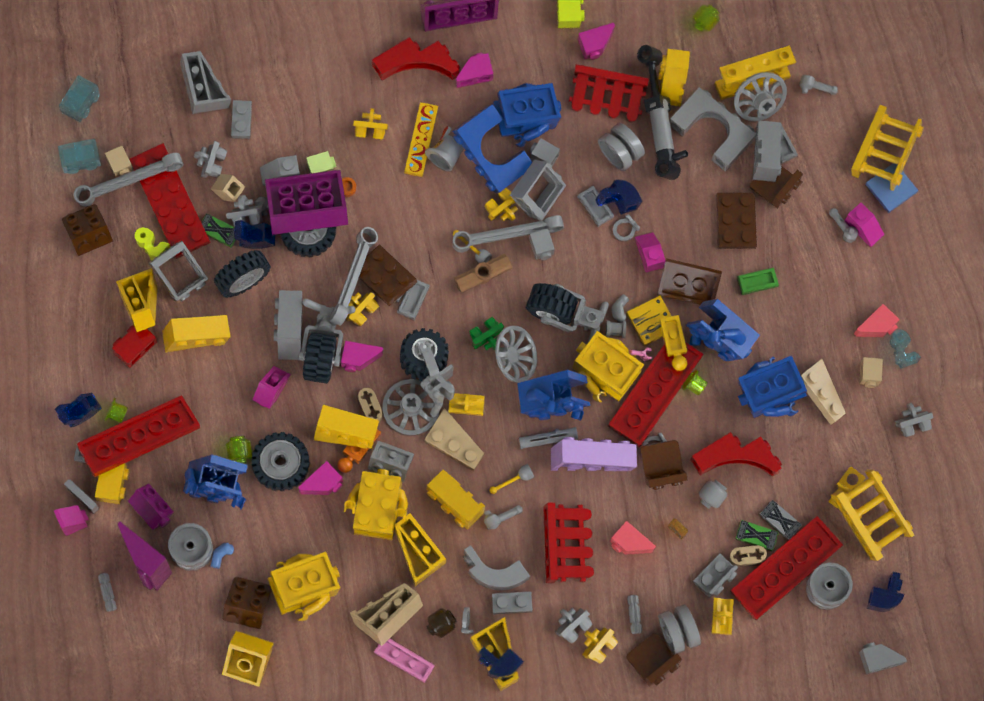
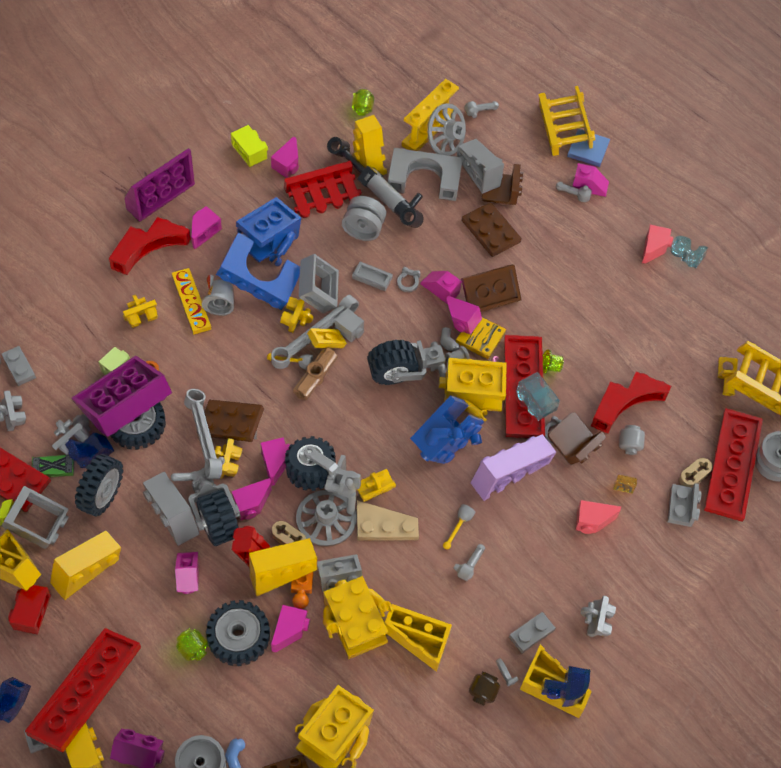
camera: 30 degrees left, 15 degrees down
(116, 411) = (47, 680): clear neon green piece -> none
(215, 480) = (187, 681): blue torso -> none
(228, 187) = (40, 423): tan brick -> none
(280, 168) = (78, 381): light grey slope -> none
(330, 394) = (247, 541): none -> red brick
(388, 614) = (431, 711): tan wedge -> none
(399, 328) = (274, 458): none -> dark pink slope
(405, 660) = (472, 744): bright pink tile -> none
(413, 300) = (268, 426): light grey tile -> none
(455, 500) = (421, 571): yellow wedge -> none
(479, 338) = (356, 420): green hips -> none
(495, 579) = (499, 620): light grey arch -> none
(510, 354) = (383, 425): light grey wheel -> none
(512, 246) = (326, 338): none -> yellow plate
(525, 442) = (462, 475): light grey pin -> none
(544, 151) = (301, 252): light grey brick -> none
(563, 552) = (531, 557): red fence -> none
(596, 641) = (630, 620): yellow hips -> none
(623, 194) = (390, 254): clear blue brick -> none
(634, 614) = (642, 577): light grey axle -> none
(645, 293) = (464, 315): none -> dark pink slope
(653, 660) = (689, 605): reddish brown bracket -> none
(655, 408) = (537, 396): none -> clear light blue brick
(674, 341) = (513, 337): yellow plate -> none
(679, 629) = (692, 563): light grey wheel -> none
(722, 616) = (716, 532): yellow hips -> none
(725, 333) = (546, 307): blue torso -> none
(756, 535) = (689, 452): tile -> none
(757, 281) = (541, 263): bright green tile -> none
(771, 387) = (615, 329): blue torso -> none
(780, 520) = (698, 430): tile -> none
(823, 392) = (655, 314): tan wing -> none
(871, 372) = (678, 279): tan brick -> none
(906, 424) = (736, 295): light grey hips -> none

